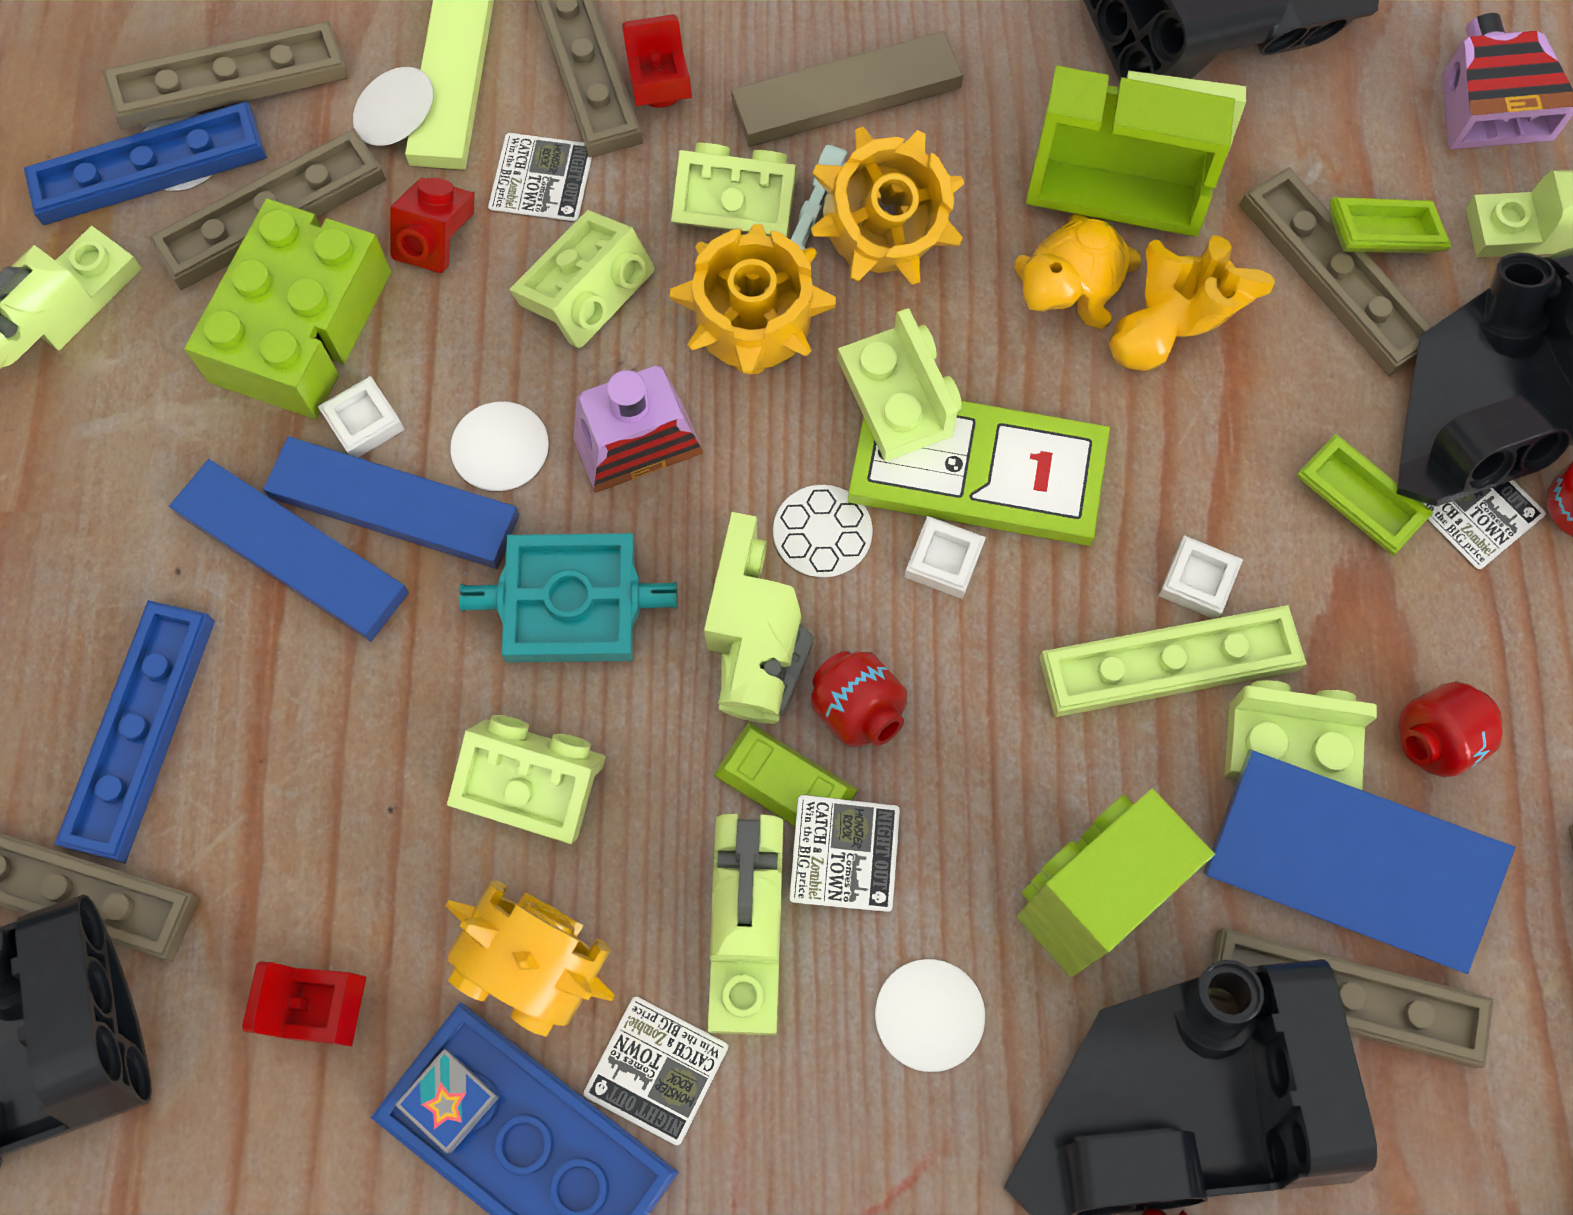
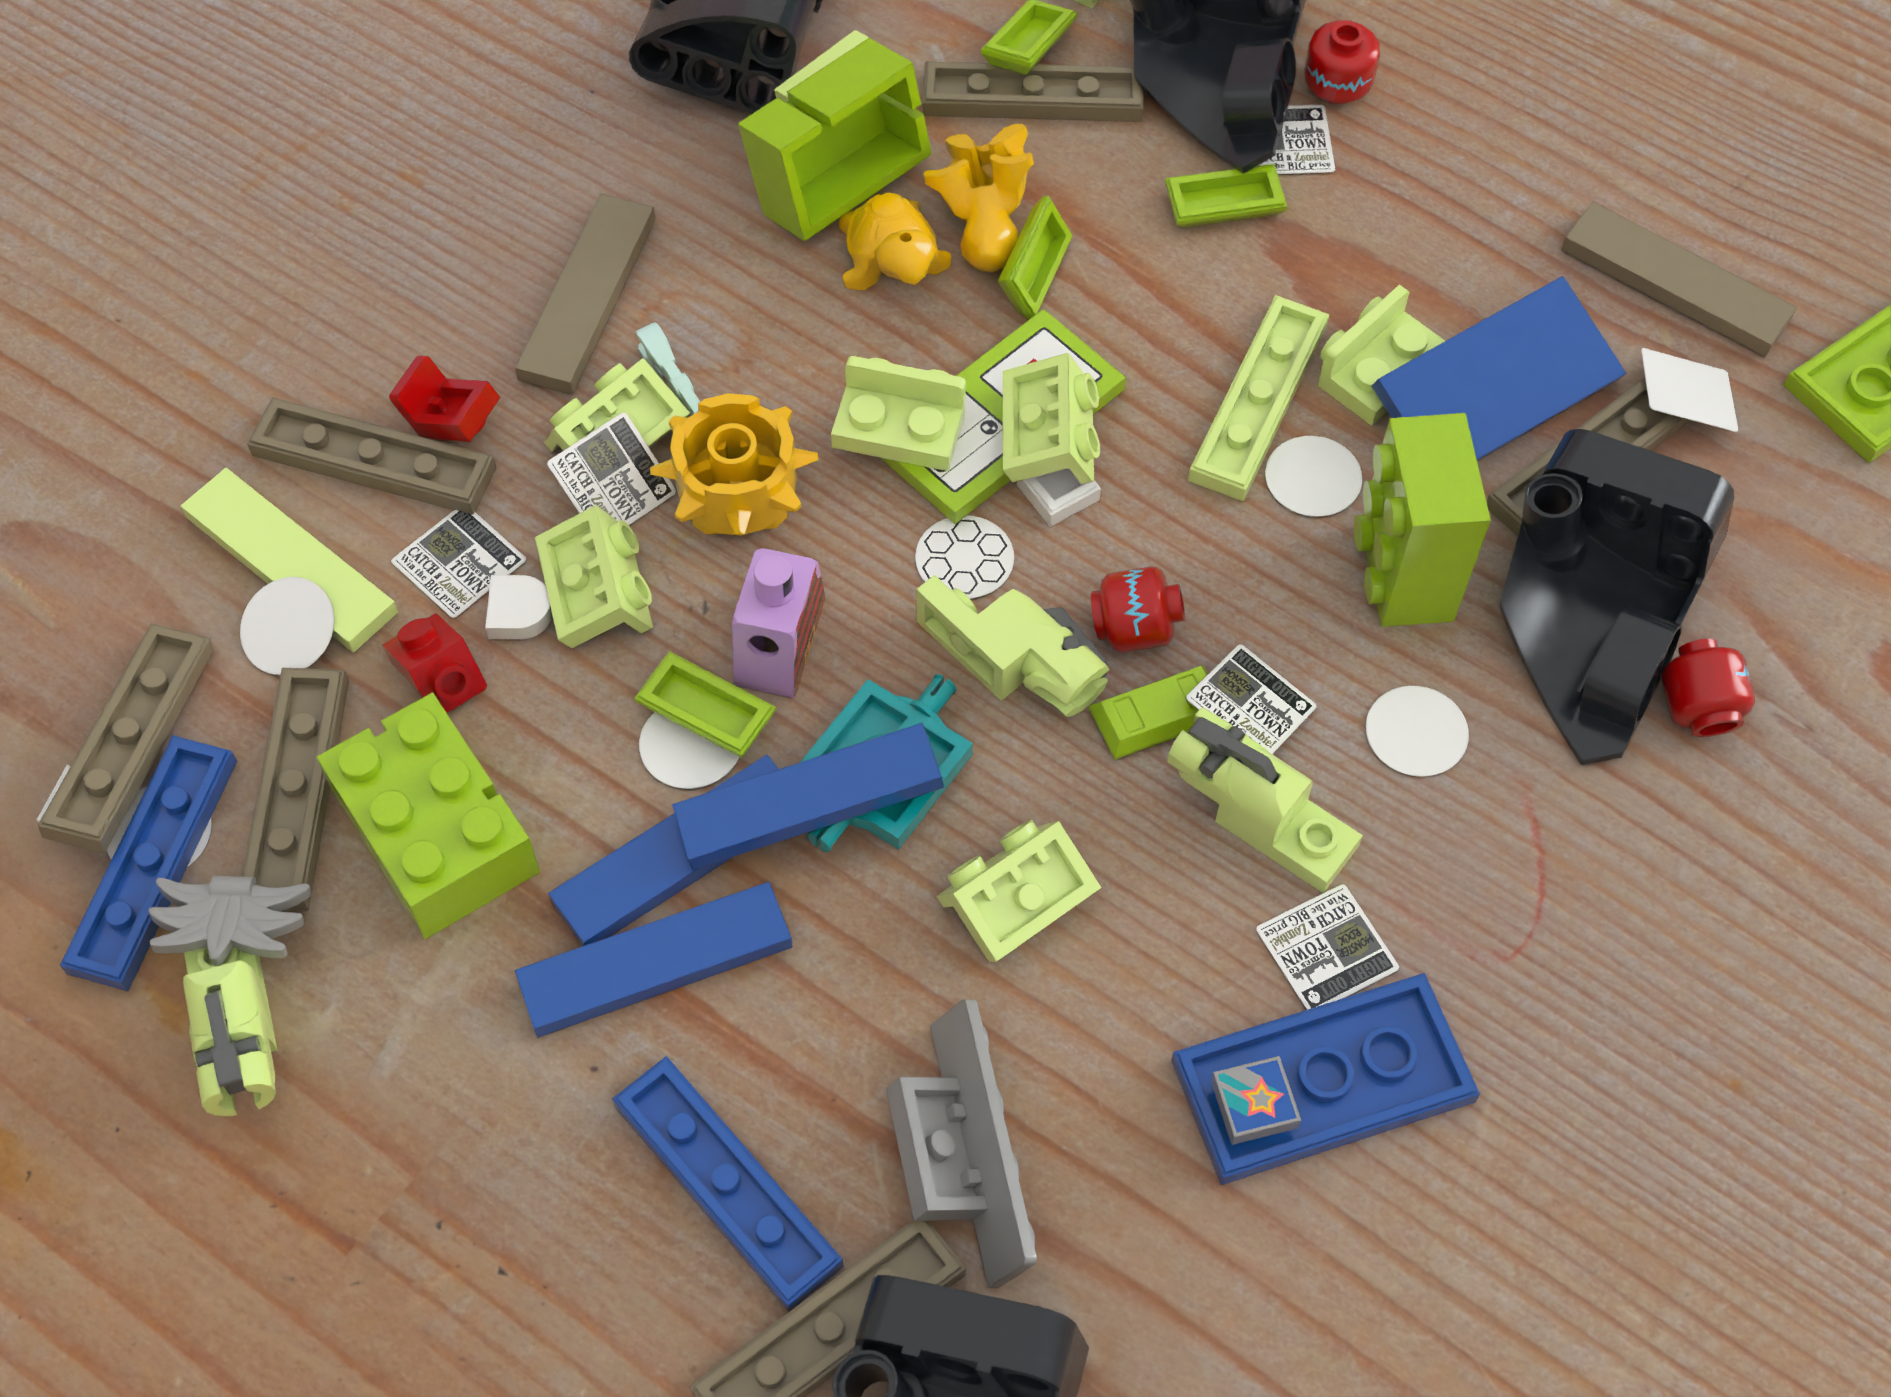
camera: 55 degrees left, 10 degrees down
(115, 239) = (225, 916): none -> light grey piece
(255, 880) = (960, 1148): none -> light grey bracket
(304, 1004) = (1095, 1167): red bracket -> none
(361, 418) = (574, 830): white tile -> none
(485, 562) = (807, 796): none -> blue tile
(520, 240) = (517, 607): none -> white tile
(525, 958) = (1184, 957): yellow brick -> none
(529, 432) = (705, 704): none -> lime tile
(678, 214) = (612, 472): none -> sticker
(898, 176) = (738, 321): yellow brick -> none
(986, 506) = (1049, 420): none -> yellowish green bracket
(1127, 755) = (1313, 476): none -> white sticker
(1157, 386) = (1035, 258): none -> lime tile
(1200, 577) = (1208, 336): white tile -> none
(1452, 727) = (1445, 255): red head -> none
(1498, 1047) = (1689, 390): none -> white sticker

